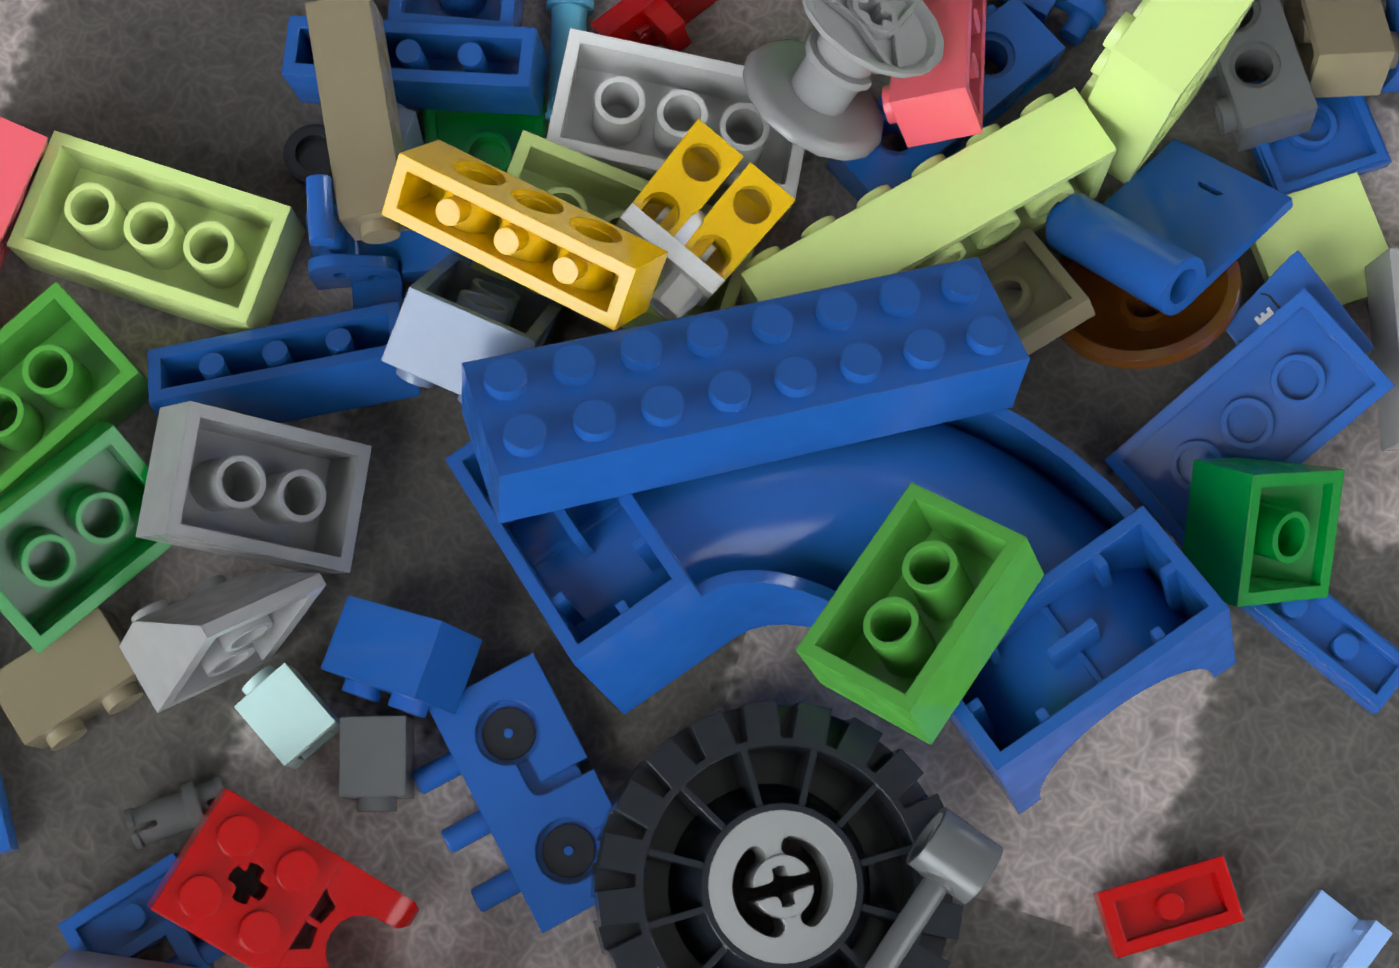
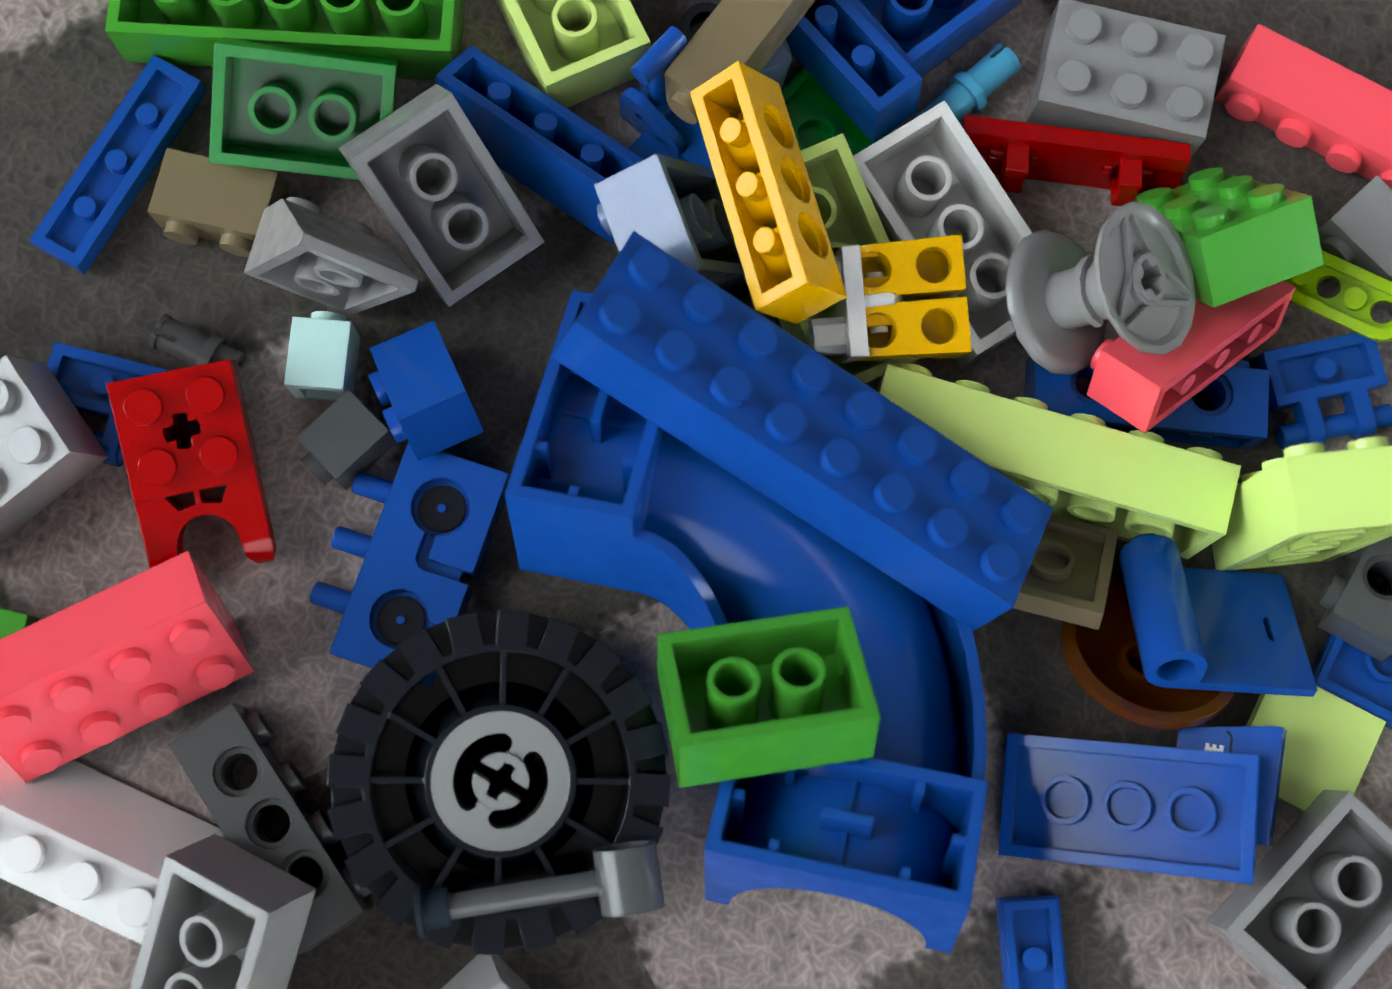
camera: 40 degrees right, 0 degrees up
(1263, 528) = (1060, 885): green slope -> none

